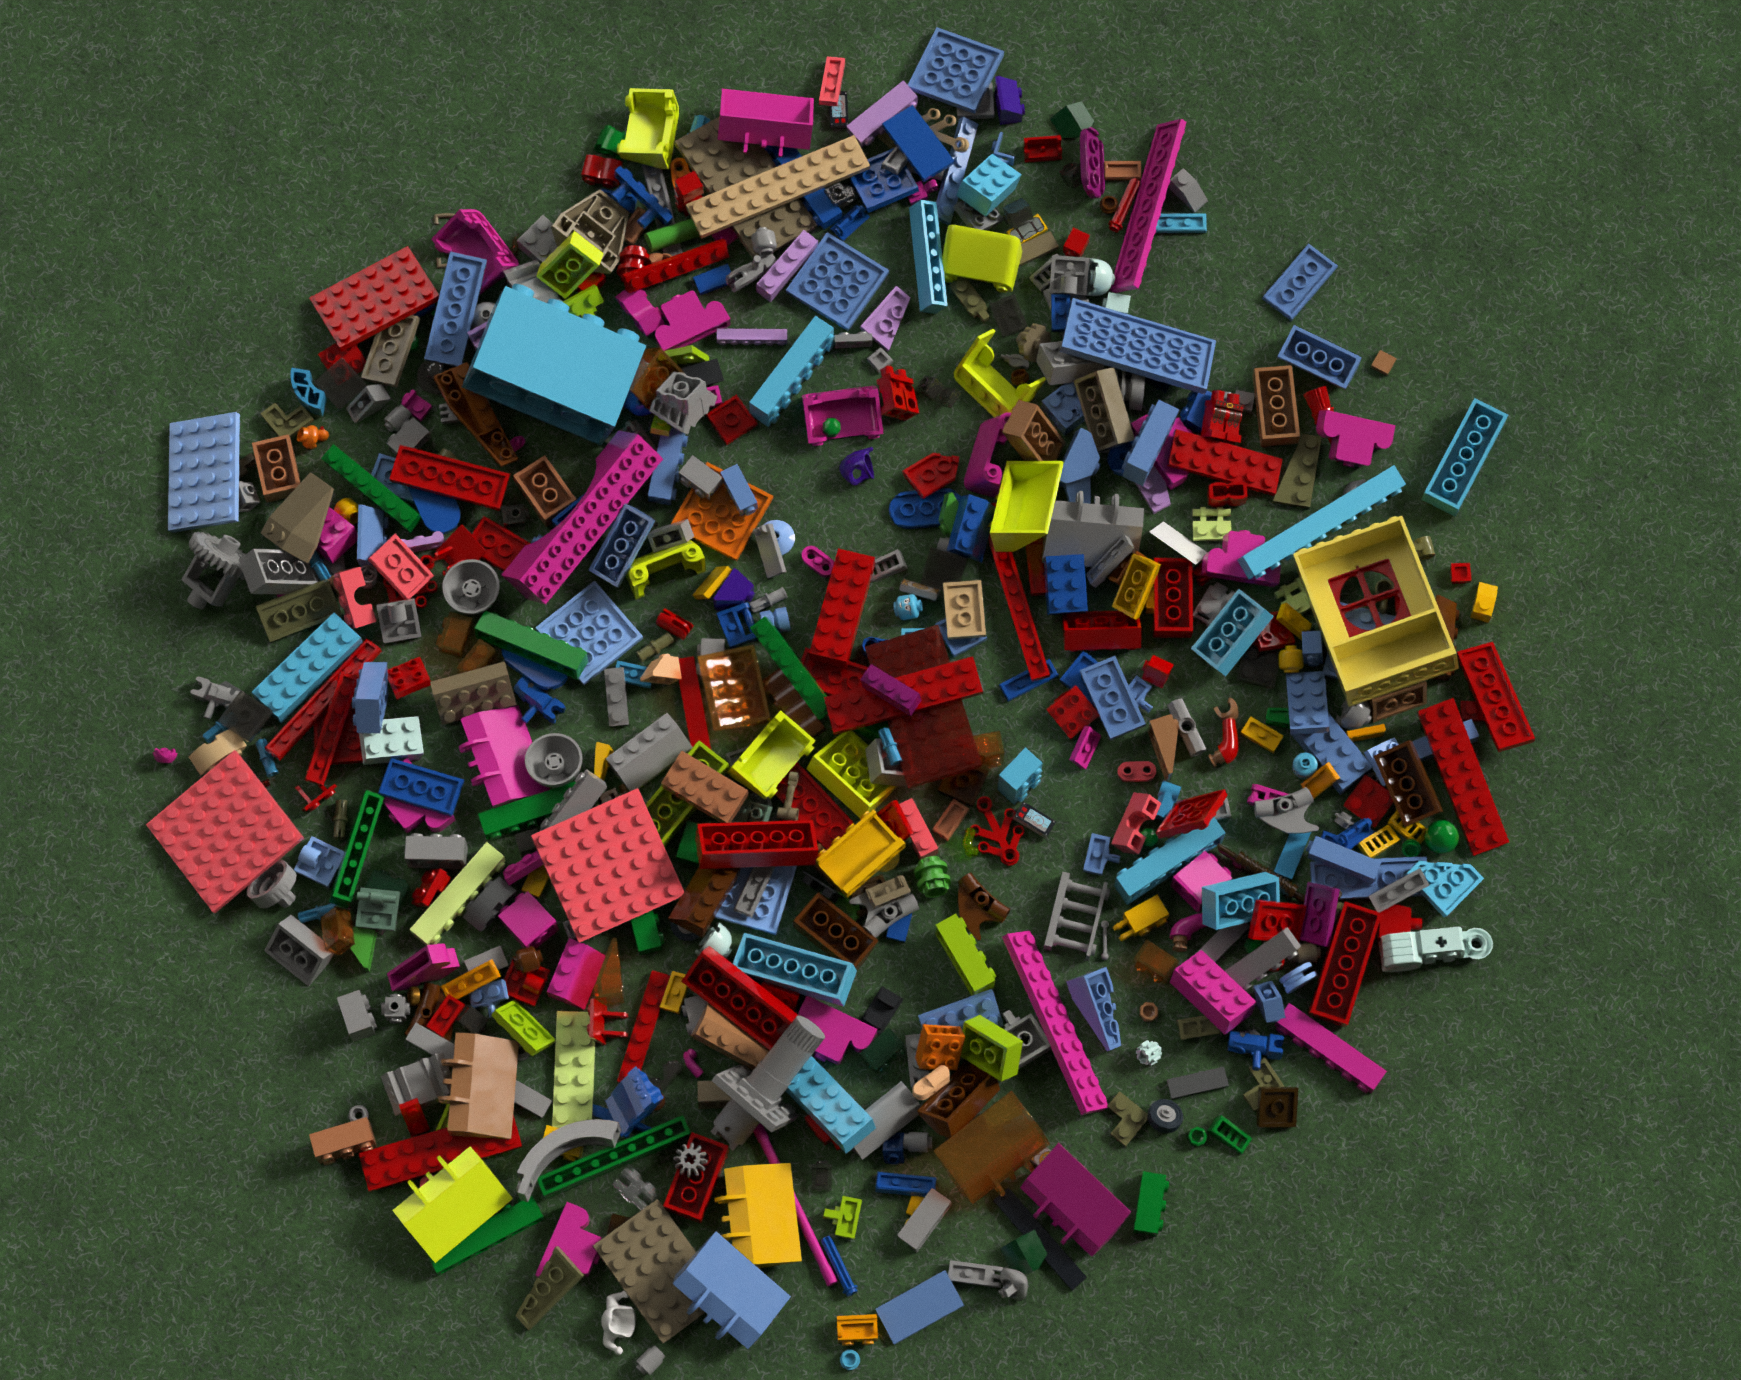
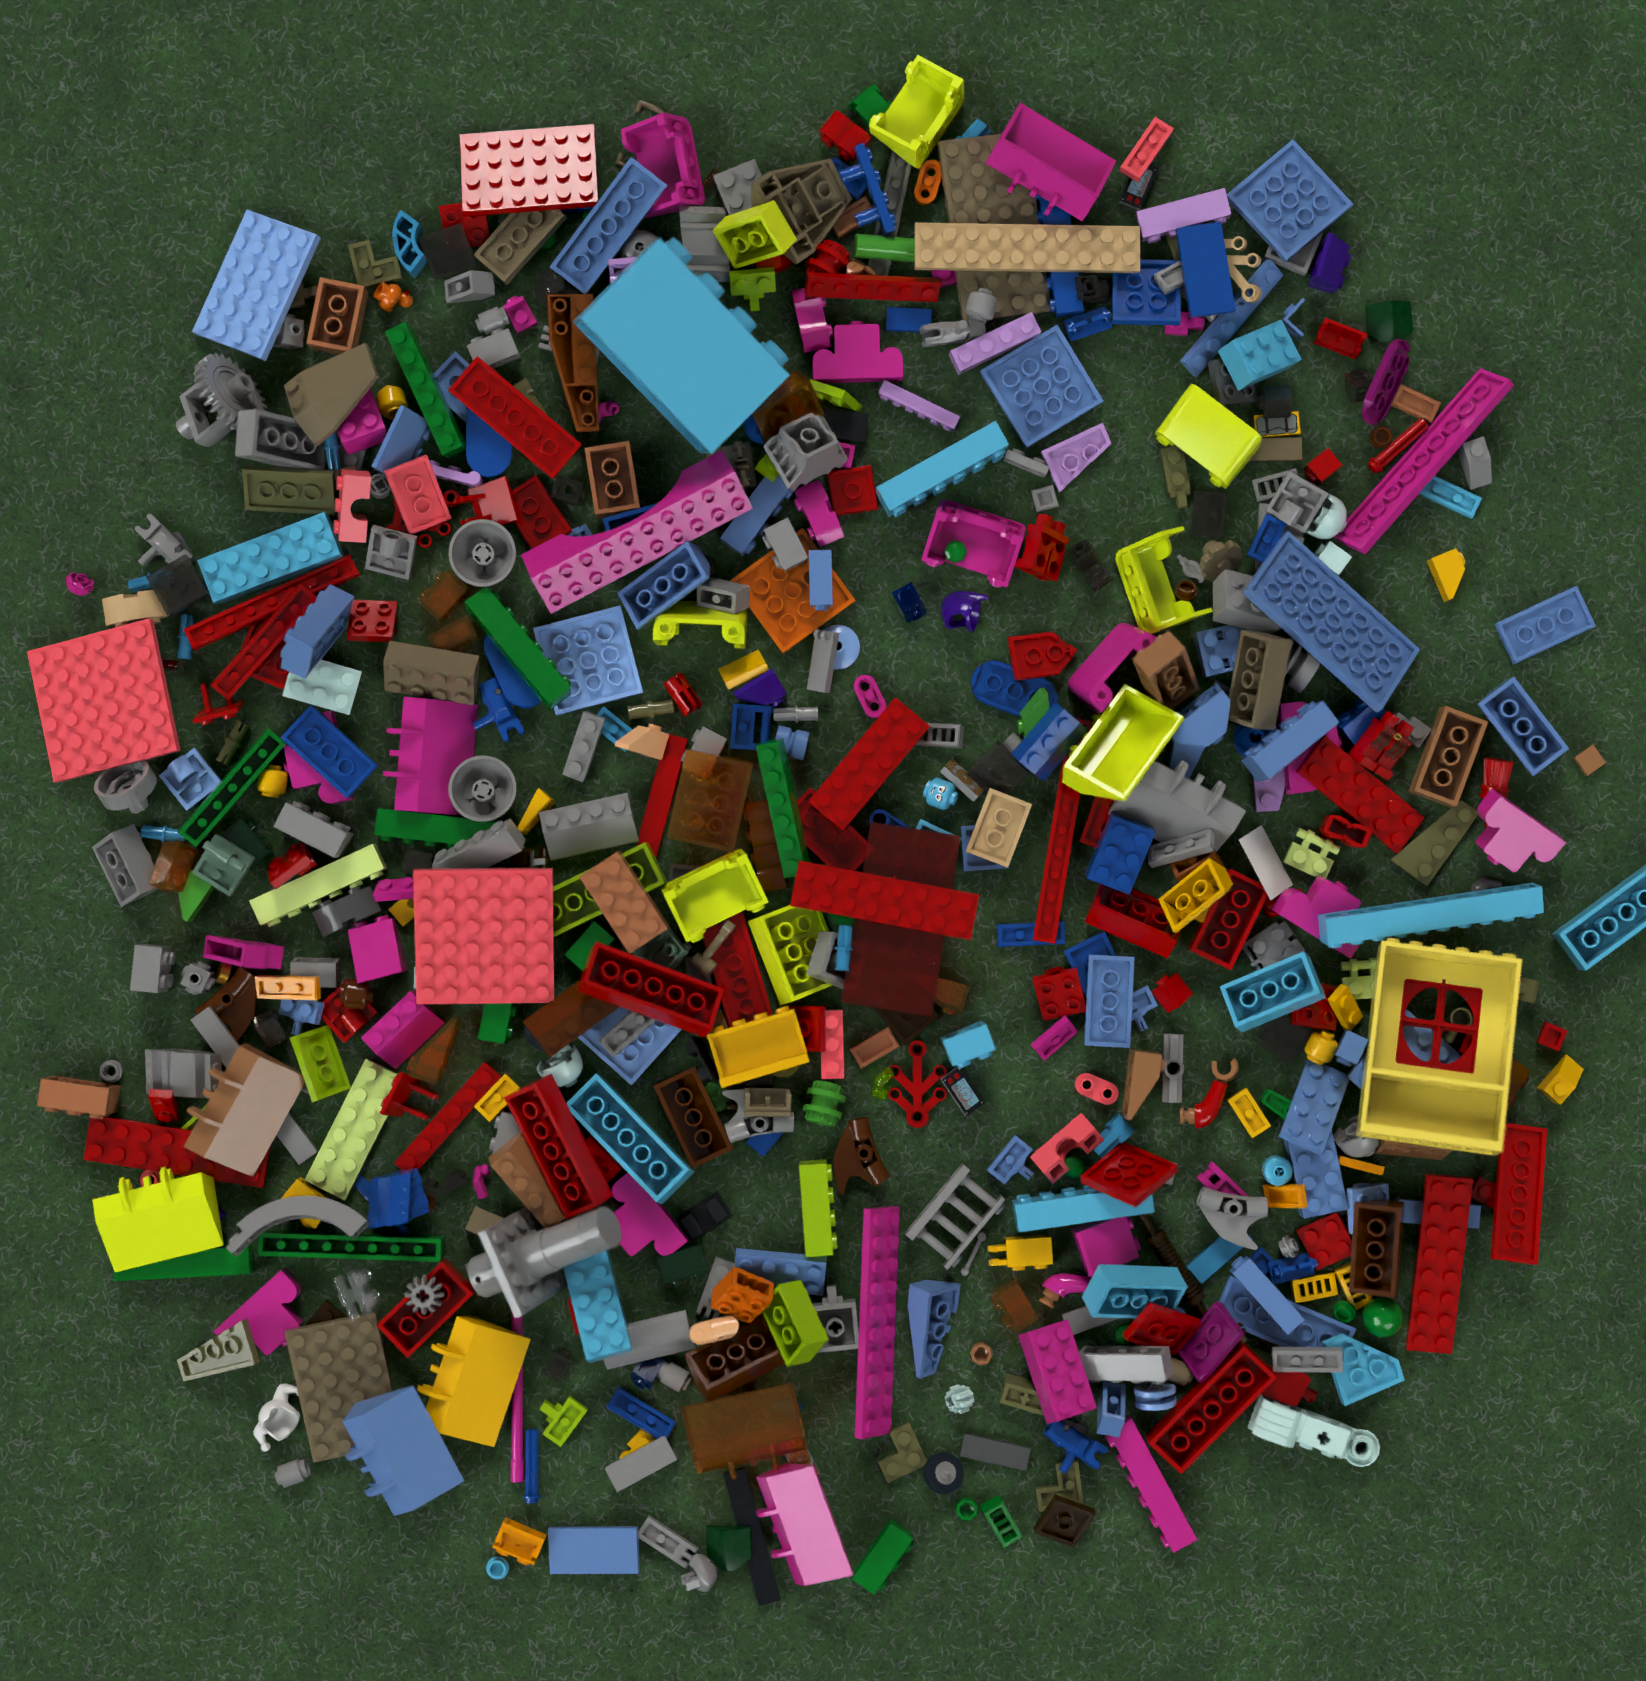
camera: 25 degrees right, 15 degrees up
(385, 833) = (272, 781): none -> yellow head
(445, 1015) = (244, 1012): red plate -> none
(687, 189) = (924, 208): red arch -> none
(708, 441) = (818, 512): none -> dark pink brick
(815, 479) = (909, 602): none -> clear blue bracket
(890, 690) = (871, 893): magenta brick -> none
(928, 256) = (1153, 406): medium azure brick -> none
(1206, 275) = (1447, 572): none -> yellow slope

